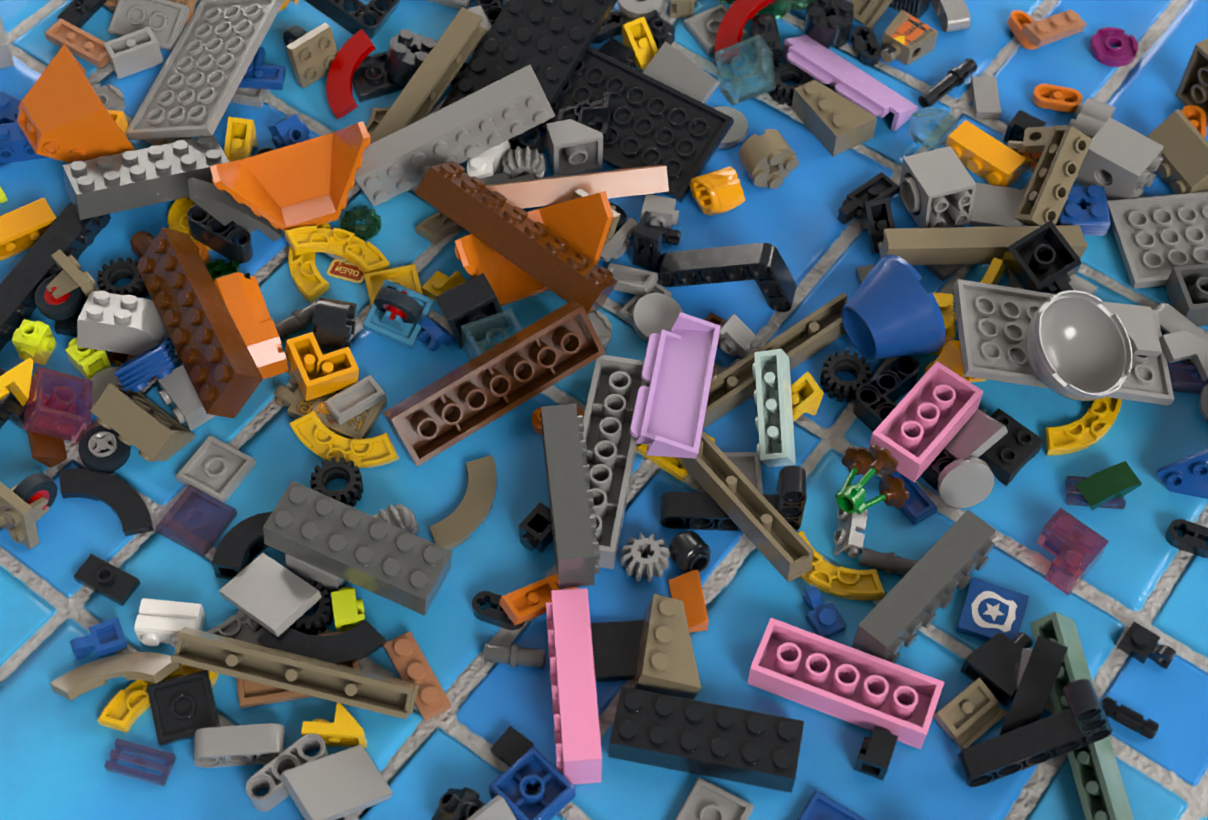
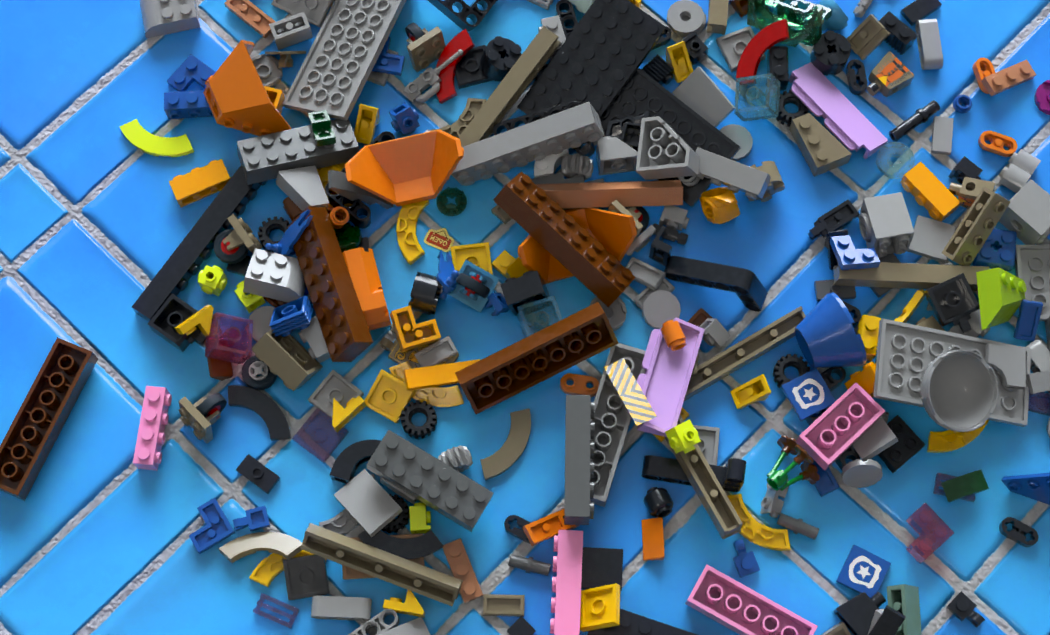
camera: 10 degrees right, 15 degrees up
(45, 660) = (216, 528): none -> blue plate
(127, 81) = (285, 57): none -> dark tan piece
(142, 268) = (291, 236): none -> blue piece
(152, 211) = (303, 187): none -> light grey slope
(162, 619) = (298, 513): white brick -> none
(178, 142) = (321, 128): none -> dark green slope
(208, 245) = (342, 214): none -> orange brick
(228, 486) = (343, 416): none -> yellow slope
(291, 457) = (388, 396): none -> yellow tile
(297, 320) = (400, 281): dark grey pin -> none
(318, 88) = (426, 79): none -> light grey piece
(339, 243) = (434, 218): yellow tile -> none
(350, 424) = (434, 375): none -> light orange tile
(362, 299) = (447, 274): none -> blue piece
(482, 716) = (503, 605): none -> dark tan tile
(536, 522) = (556, 464): black brick -> none
(625, 691) = (600, 607): none -> yellow tile
(630, 406) = (630, 392): none -> sticker
(636, 128) = (664, 152): none -> light grey brick
(647, 567) = (635, 502): light grey gear -> none
(666, 651) = (634, 575): dark tan wedge -> none
(679, 333) = (673, 335): none -> orange brick
(712, 449) = (683, 437): none -> neon yellow brick
(720, 144) = (730, 173): none -> light grey hinge
(774, 408) = (734, 400): light aqua brick -> none
(872, 391) = (808, 394): none -> blue tile
(897, 223) = (852, 258): none -> plate
(926, 589) = (813, 557): dark grey brick -> none
(1003, 61) = (962, 99): none -> blue plate
(1101, 248) = (998, 295): none -> lime wedge
(1144, 281) = (1028, 320): none -> blue tile

